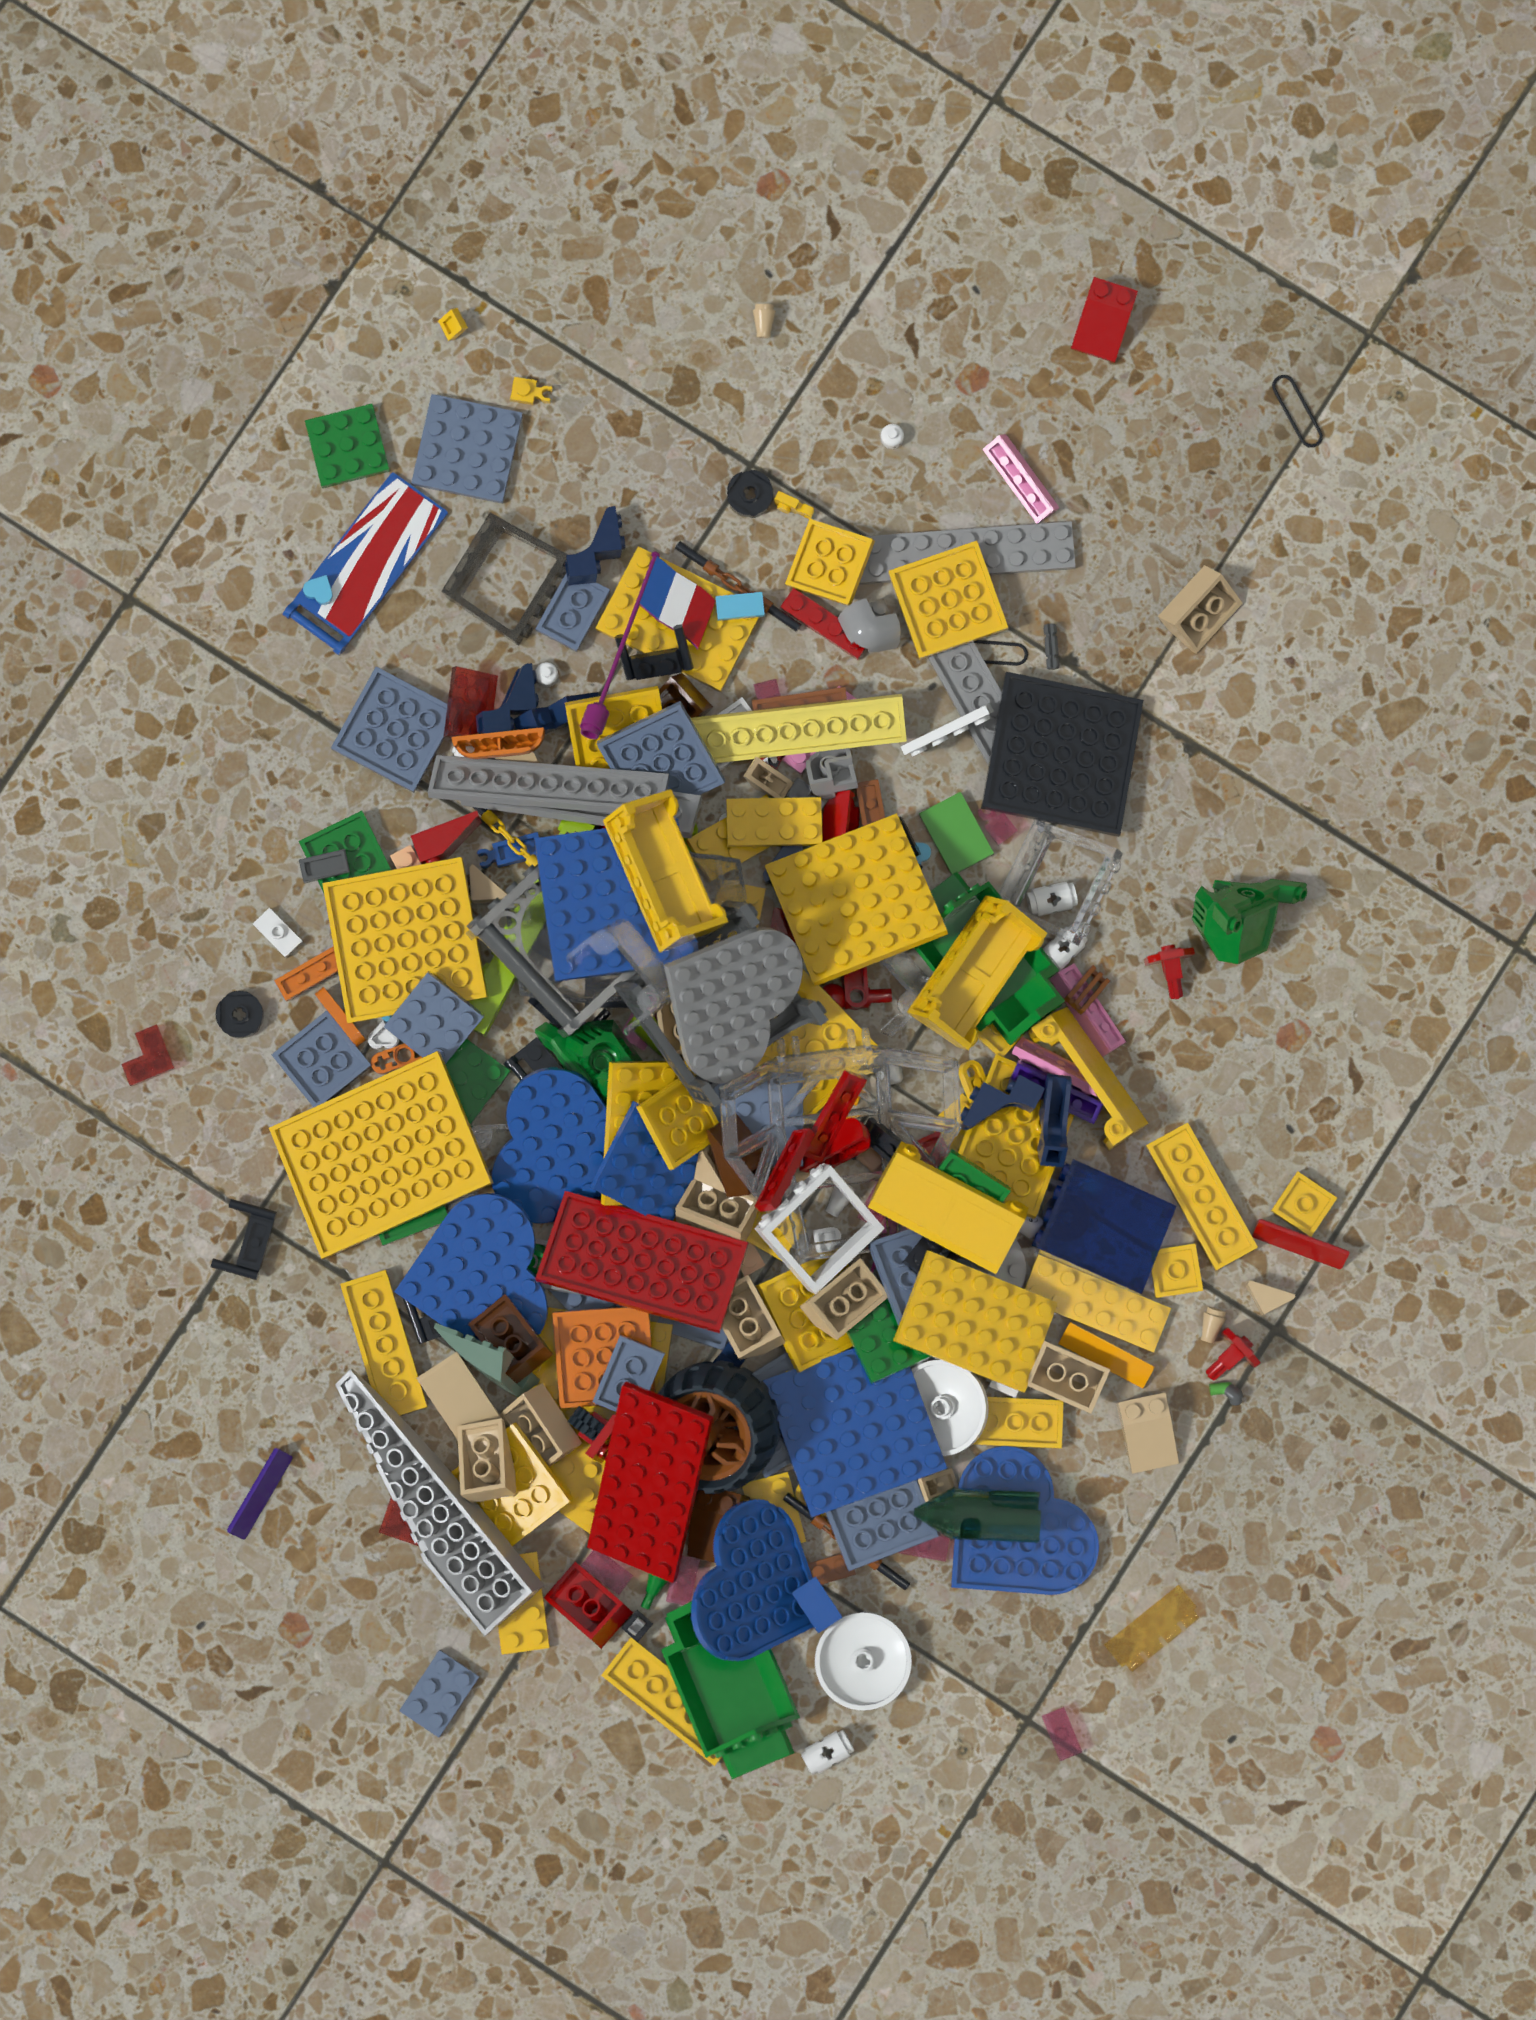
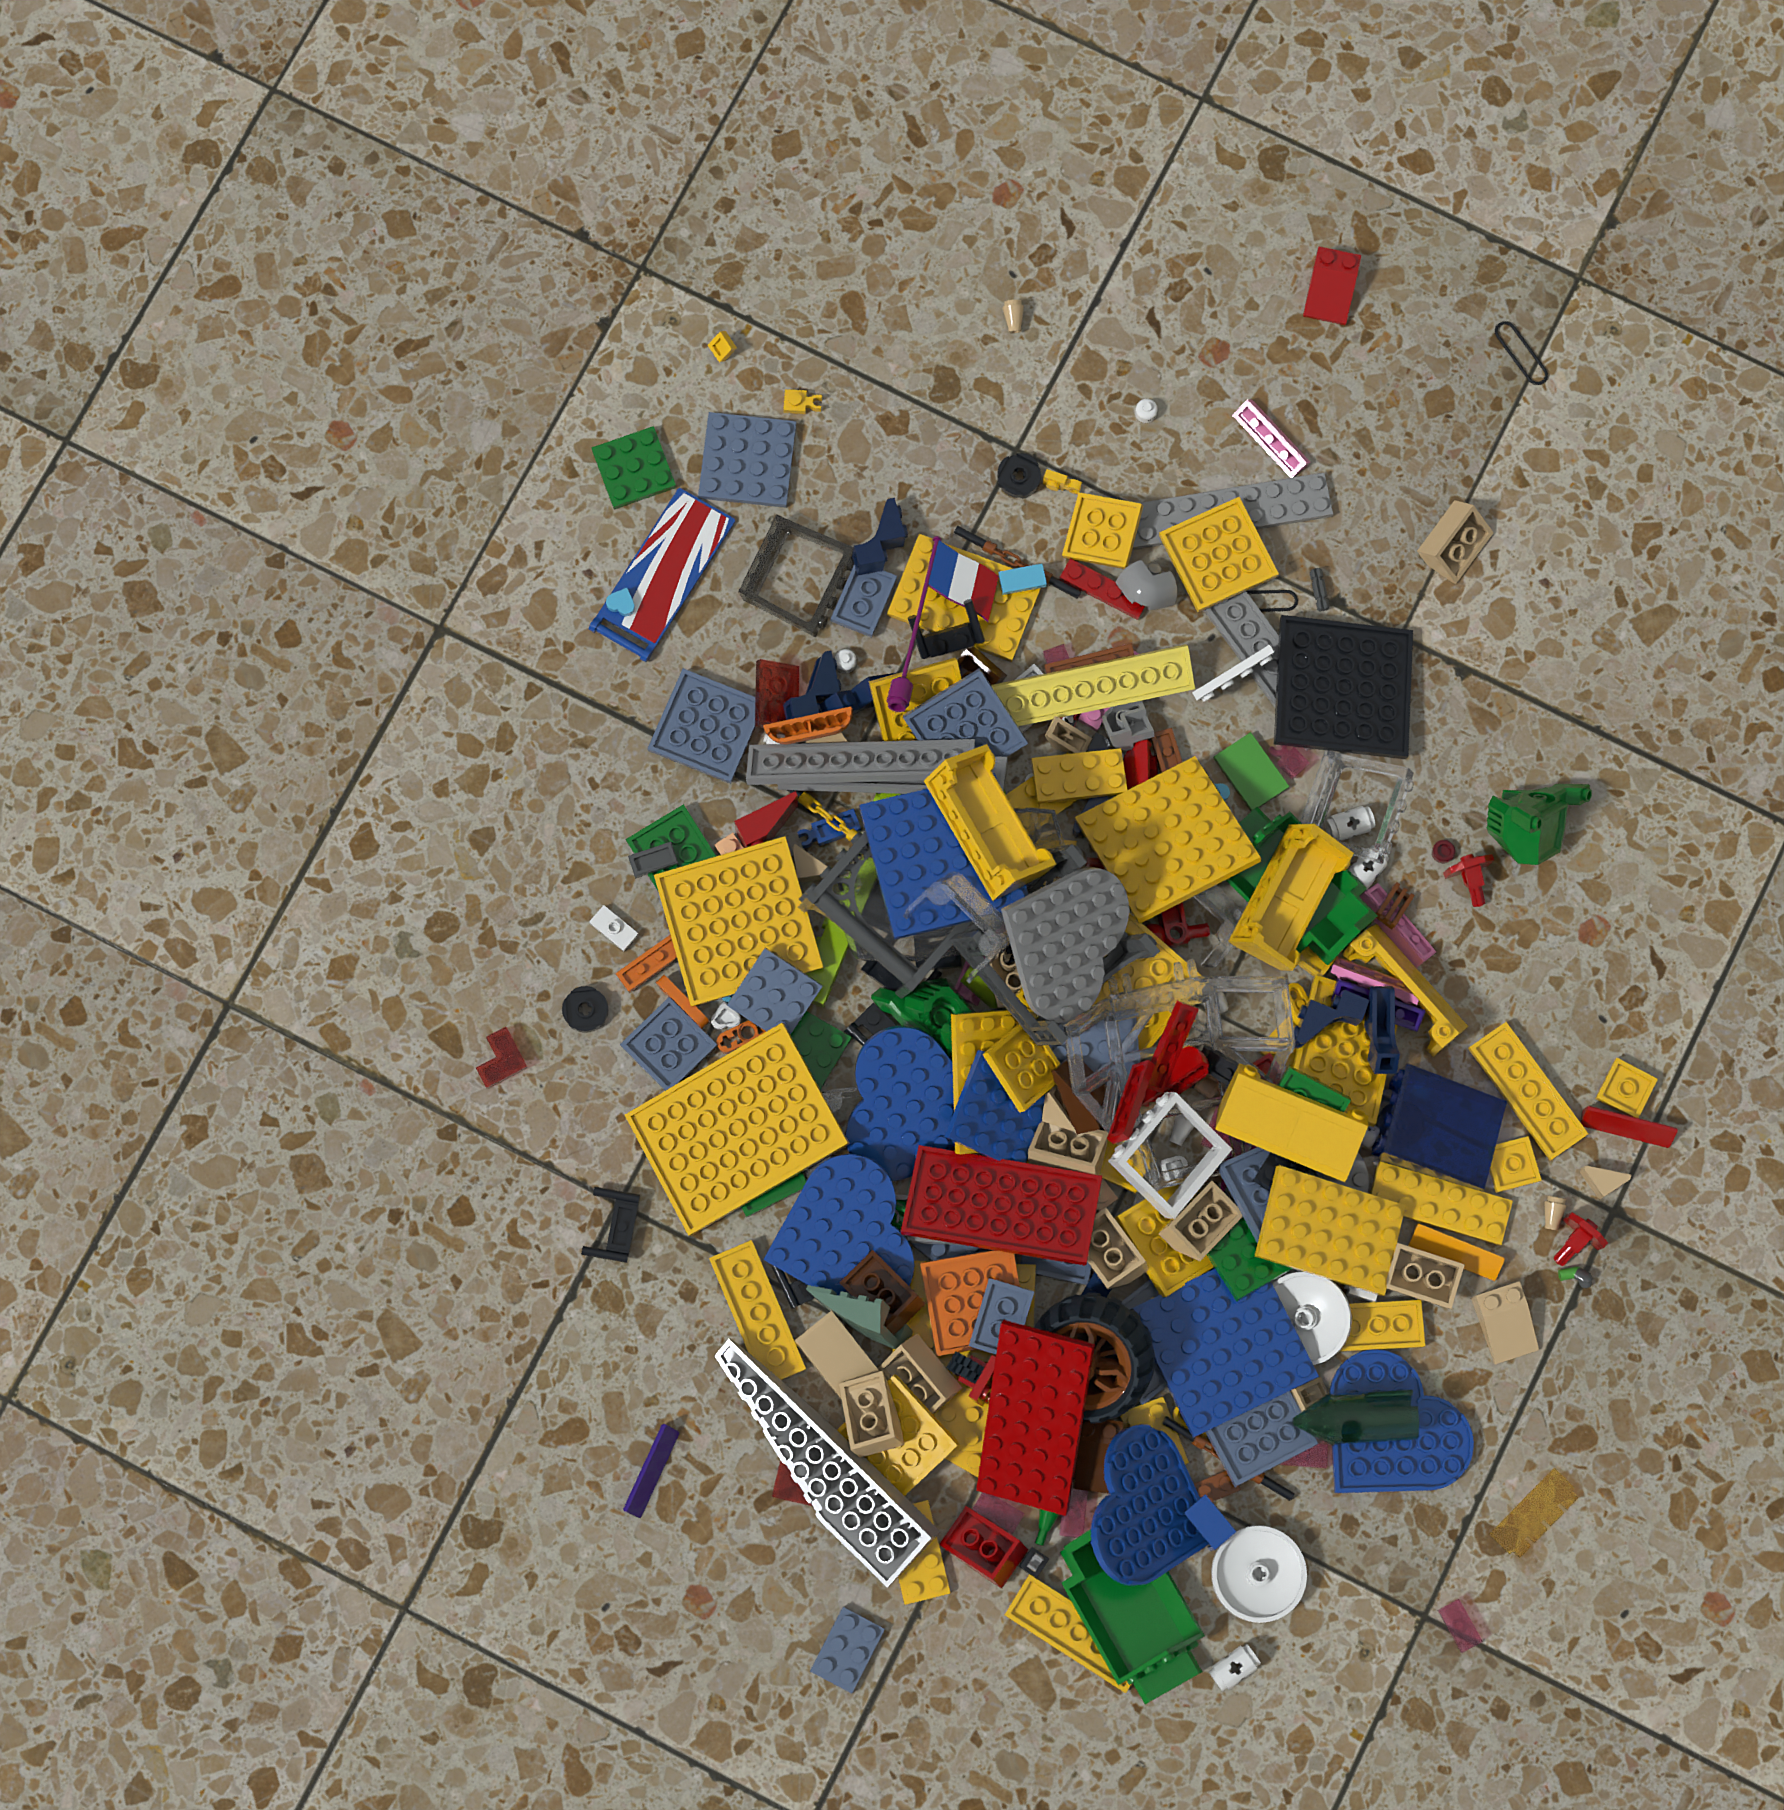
camera: 10 degrees left, 5 degrees down
(1146, 937) = (1443, 851): none -> dark red tile

